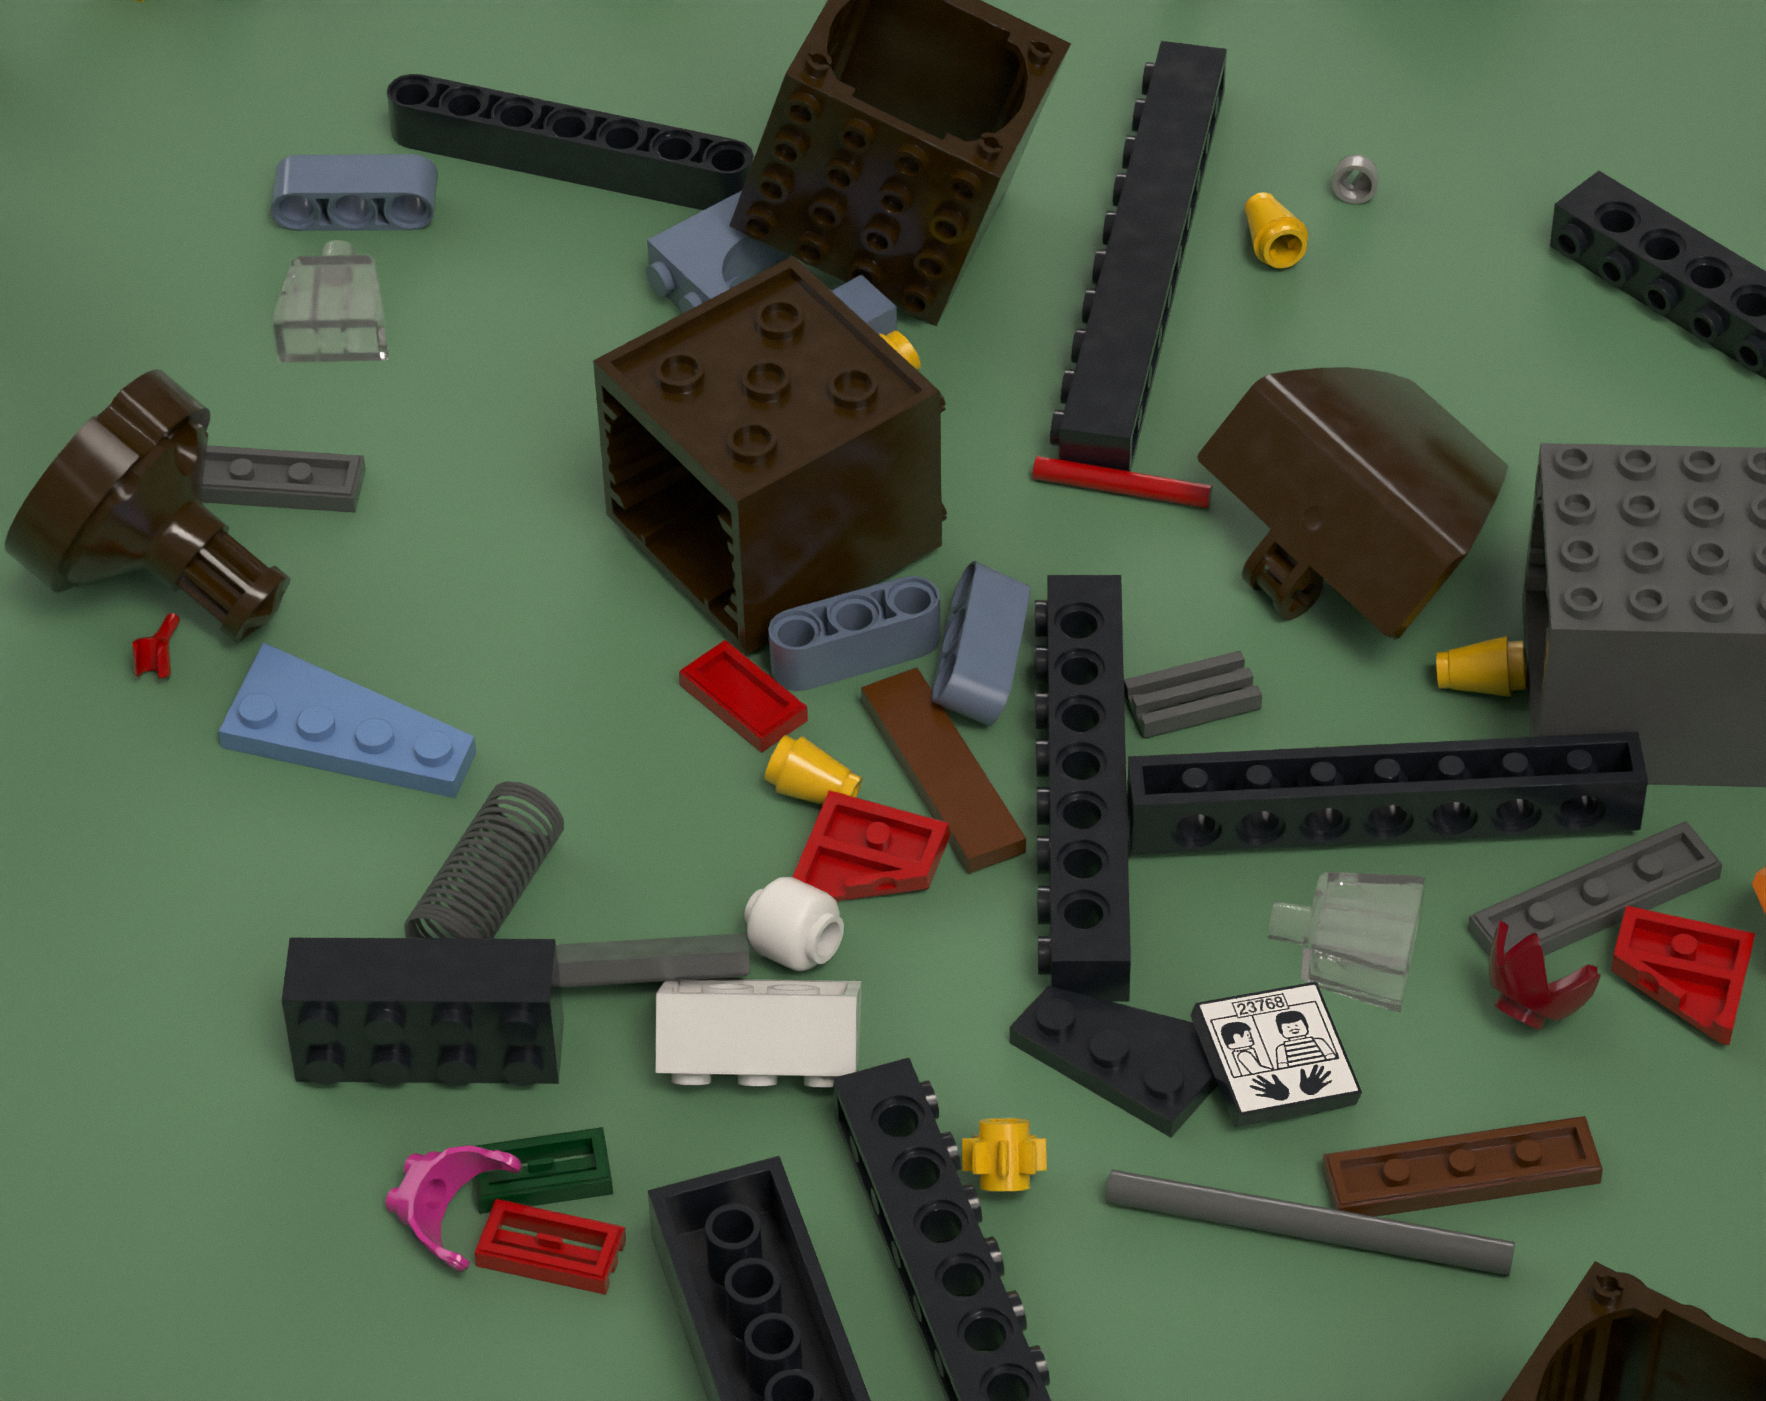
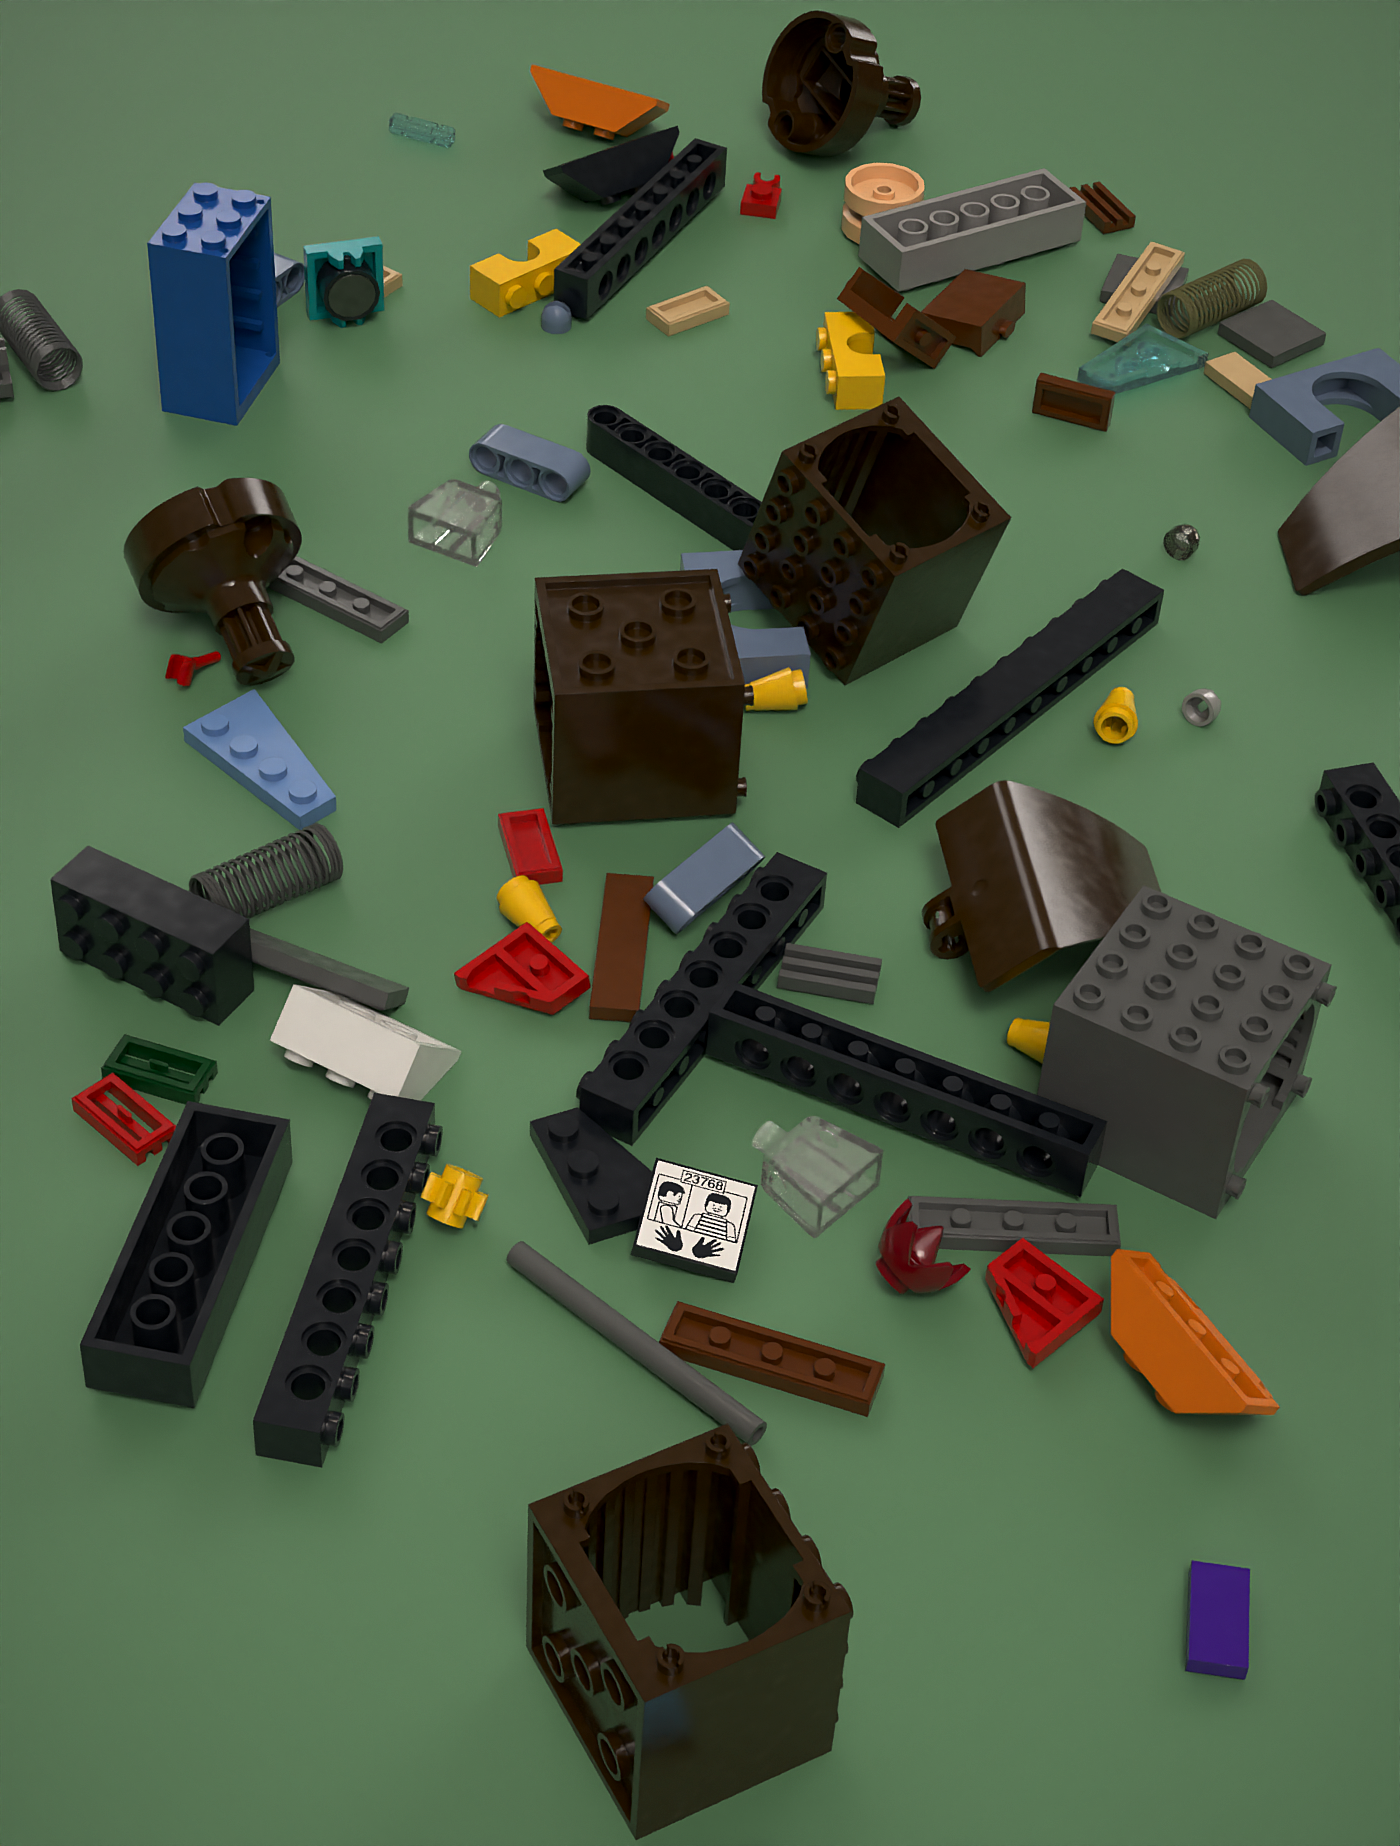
camera: 25 degrees right, 5 degrees down
(430, 1186) = (74, 1049): dark pink helmet -> none
(793, 924) = (437, 992): white head -> none
(854, 633) = (626, 837): sand blue beam -> none
(1122, 482) = (889, 825): red bar -> none

